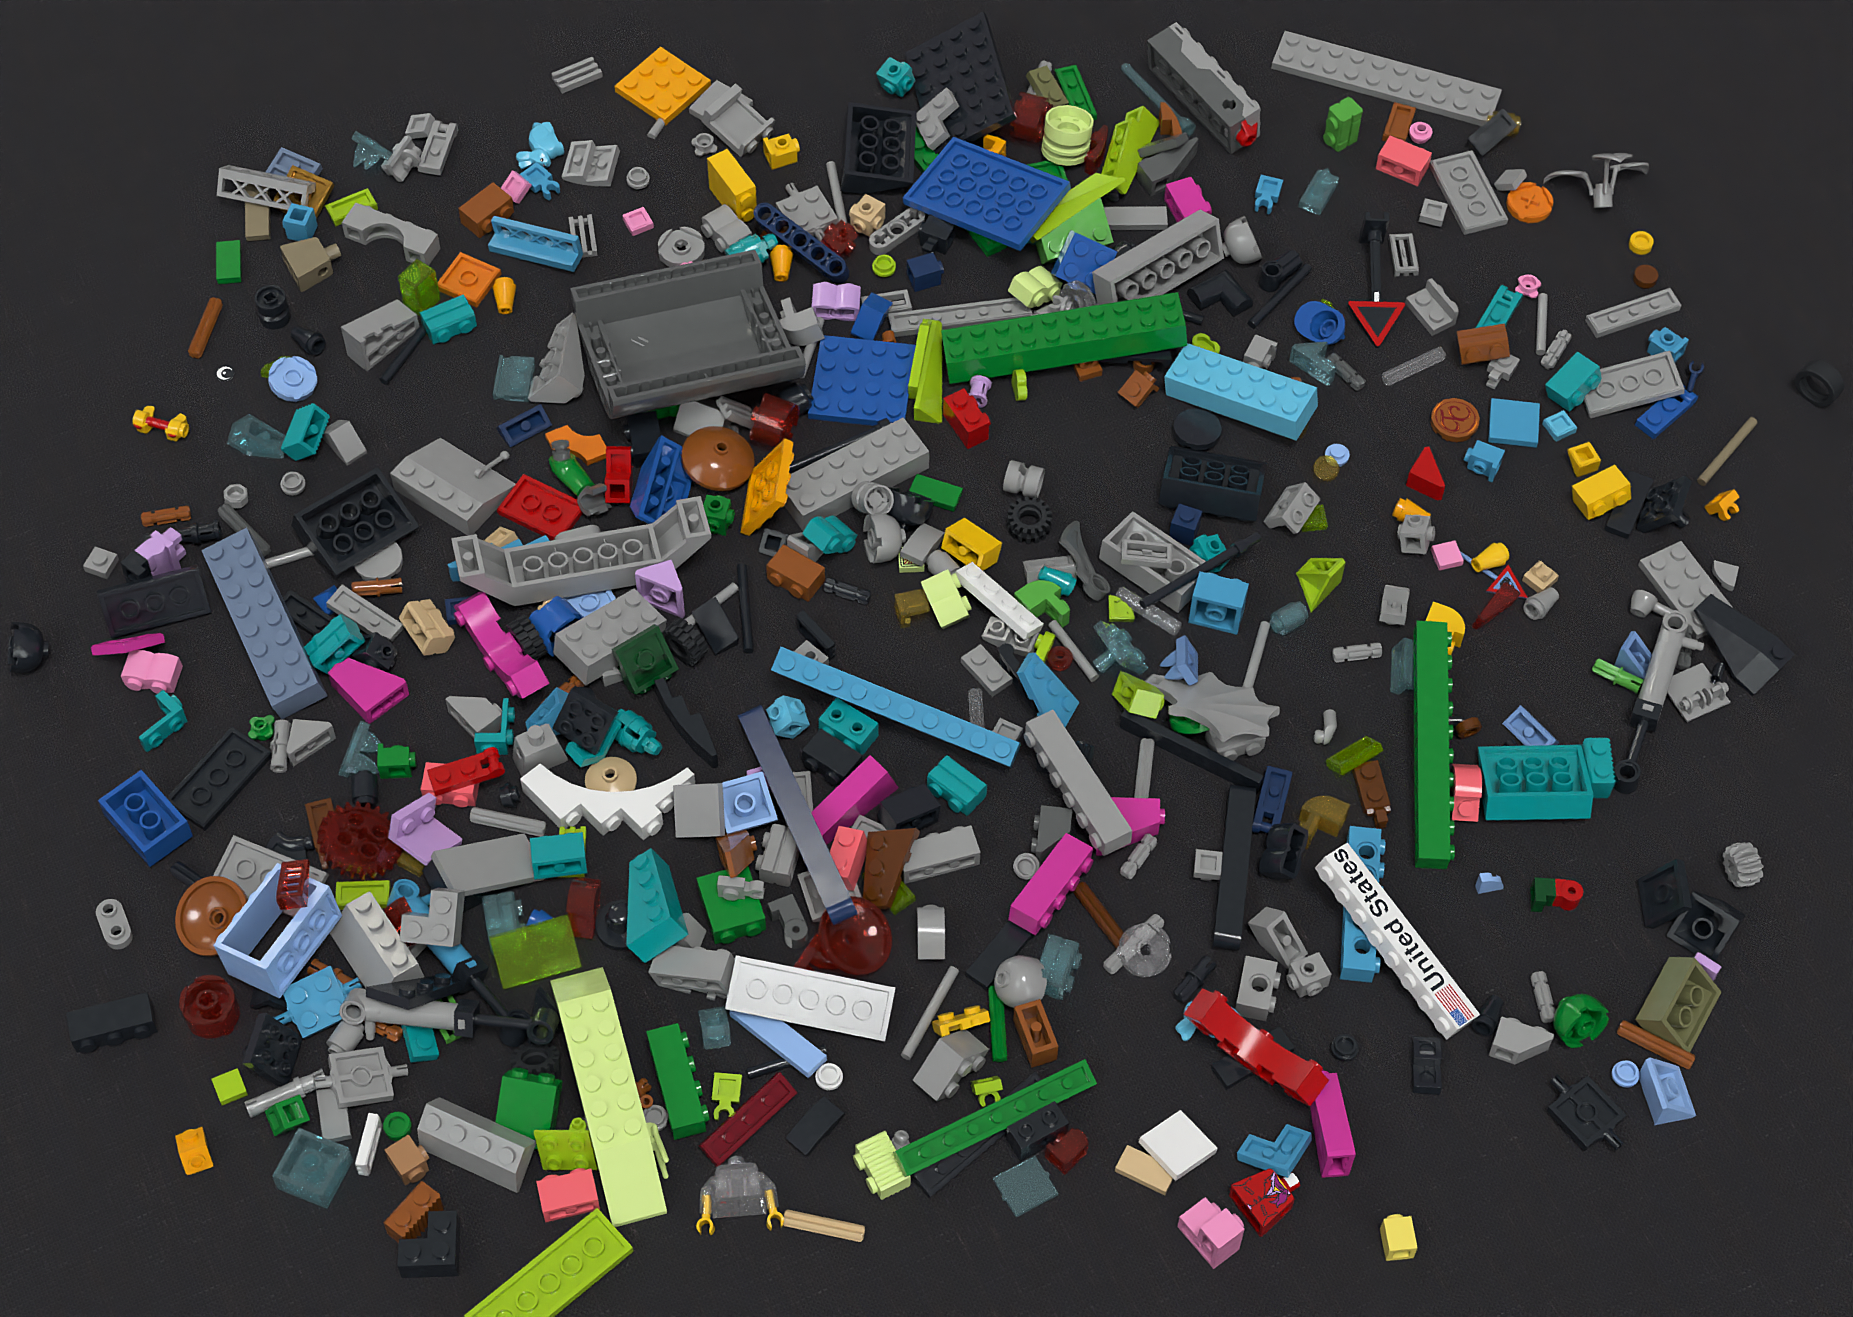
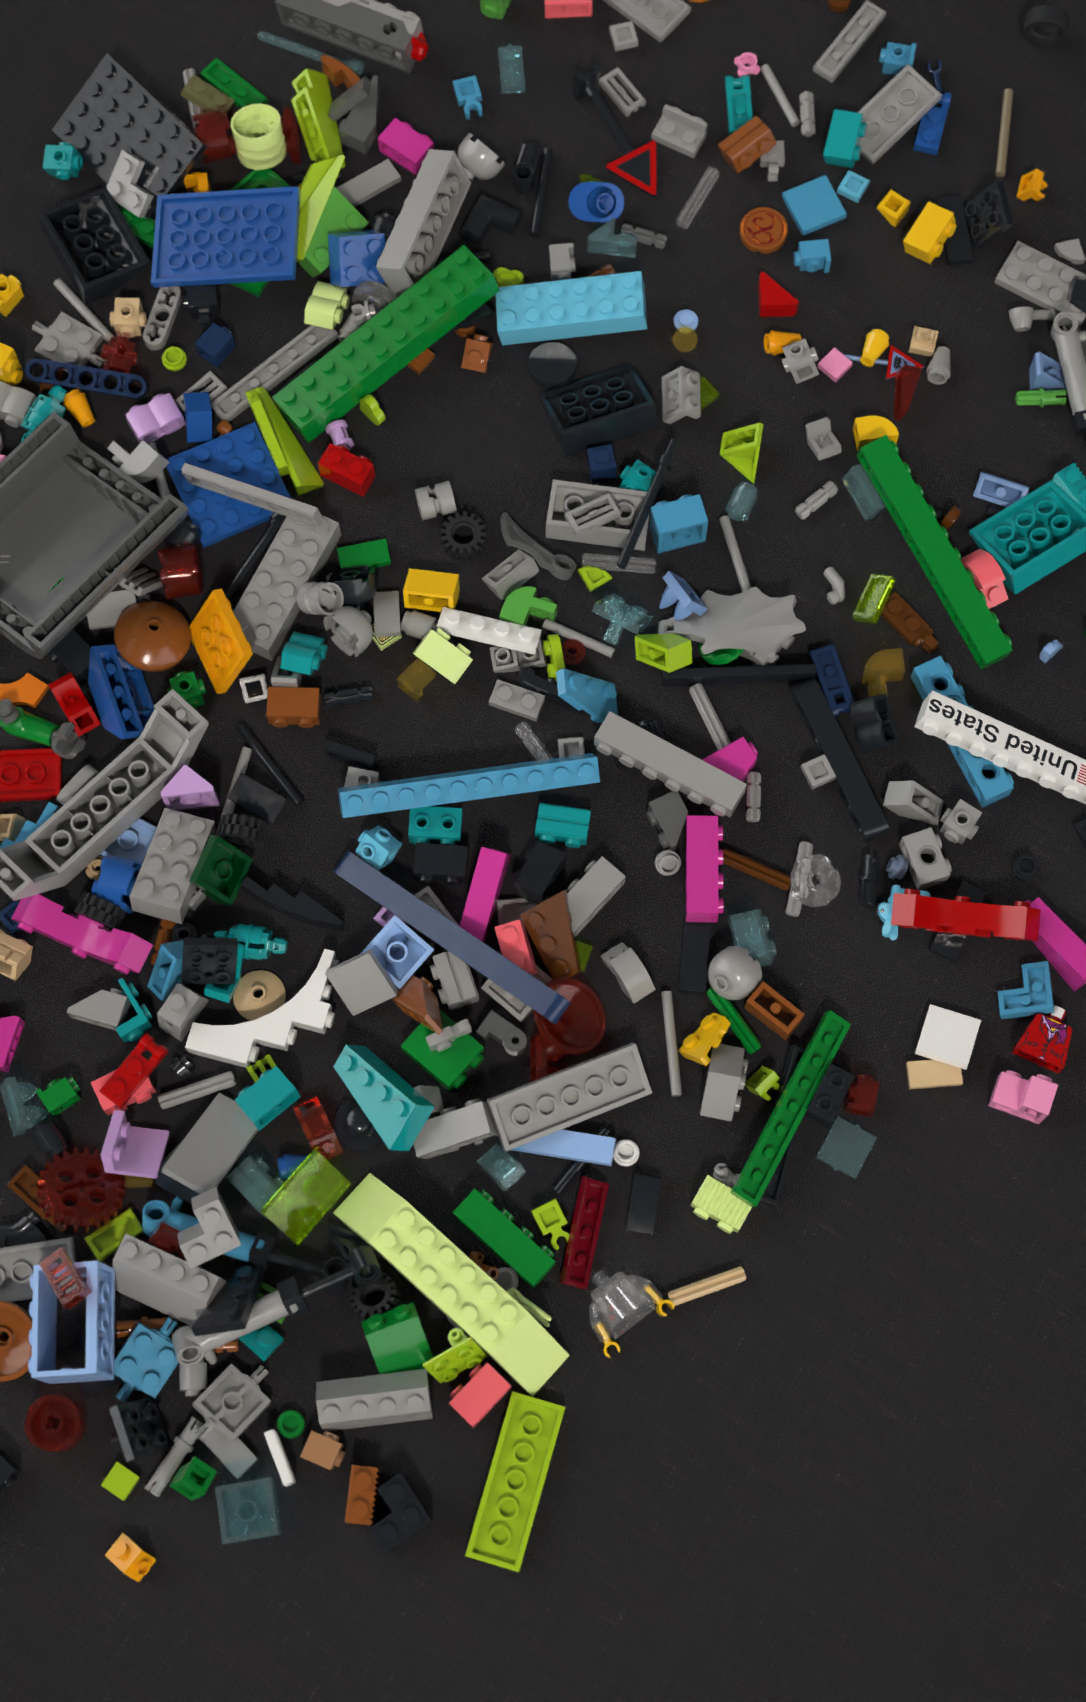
camera: 30 degrees left, 15 degrees up
(871, 391) = (252, 495): none -> light grey tile
(1058, 577) = (526, 578): teal cone -> none
(1227, 981) = (897, 867): none -> sand blue plate

